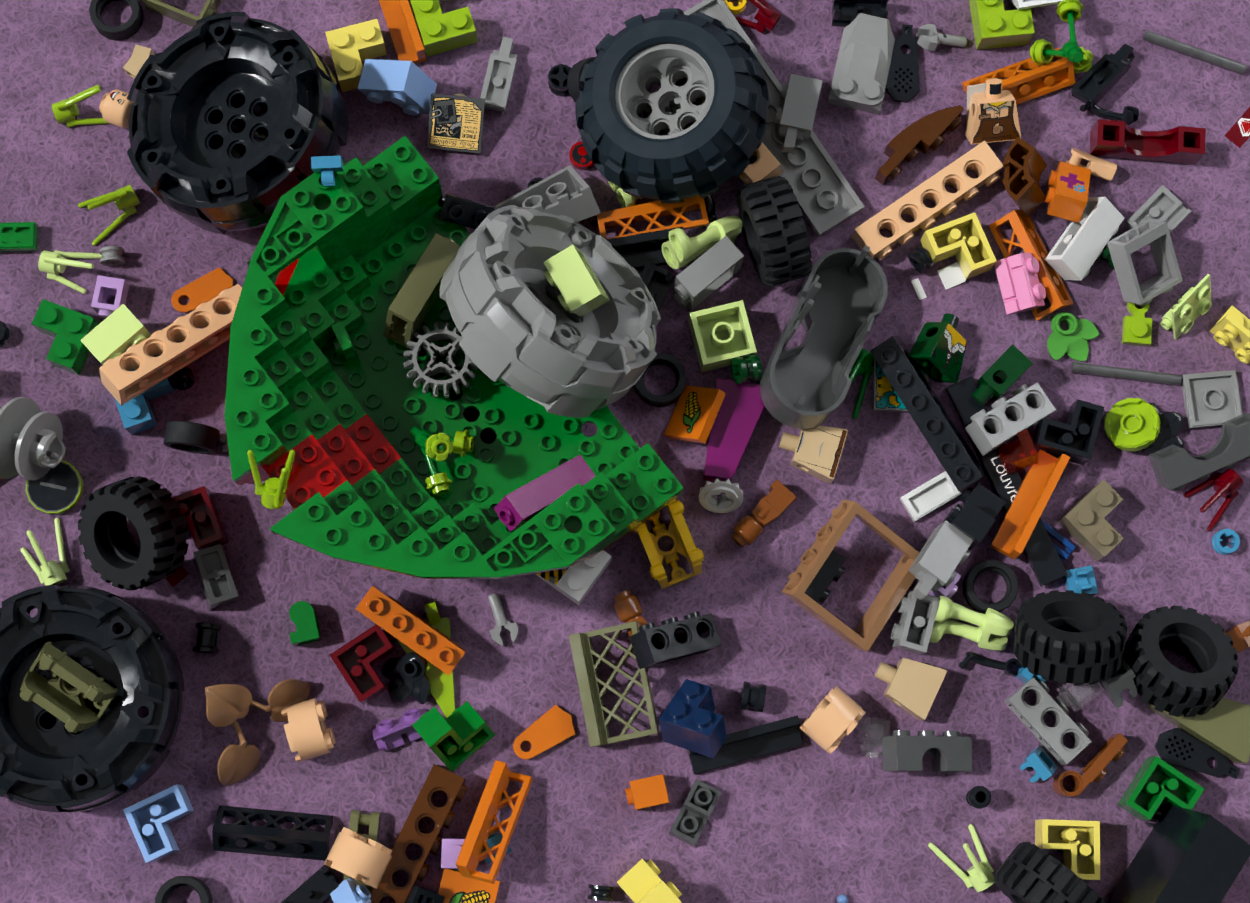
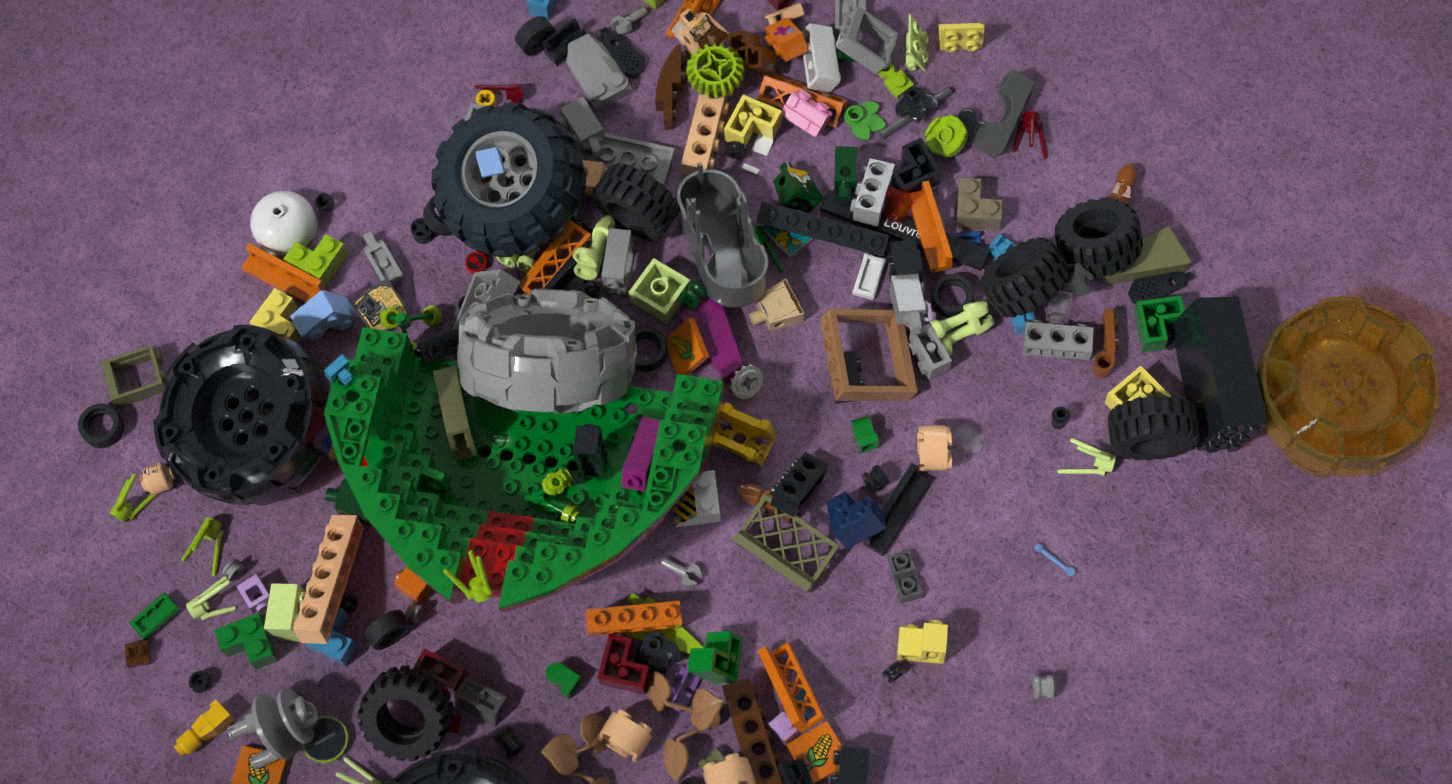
camera: 30 degrees left, 10 degrees down
(138, 58) = (143, 442): tan piece -> none
(201, 290) = (310, 542): orange piece -> none
(391, 777) = (704, 716): none -> medium nougat plant
(433, 369) = (486, 439): light grey gear -> none
(456, 143) = (392, 318): none -> lime plant
(504, 443) = (590, 451): none -> black brick
(545, 733) = (771, 611): orange piece -> none
(576, 281) = (546, 320): yellowish green brick -> none
(647, 792) = (865, 588): orange brick -> none
(660, 78) = (490, 162): none -> light blue slope
(765, 513) = (782, 370): dark orange piece -> none
(783, 644) = (864, 434): none -> green leg
(906, 752) = (994, 426): dark grey arch -> none
(911, 685) = (961, 390): tan torso -> none
(981, 168) = (723, 61): none -> lime gear
(989, 662) = (989, 341): black piece -> none
(1041, 763) = (1076, 367): dark azure tile -> none
(1132, 368) = (916, 105): none -> black plate
(1211, 398) = (976, 85): light grey tile -> none
(1225, 533) = (1061, 148): dark azure bush -> none

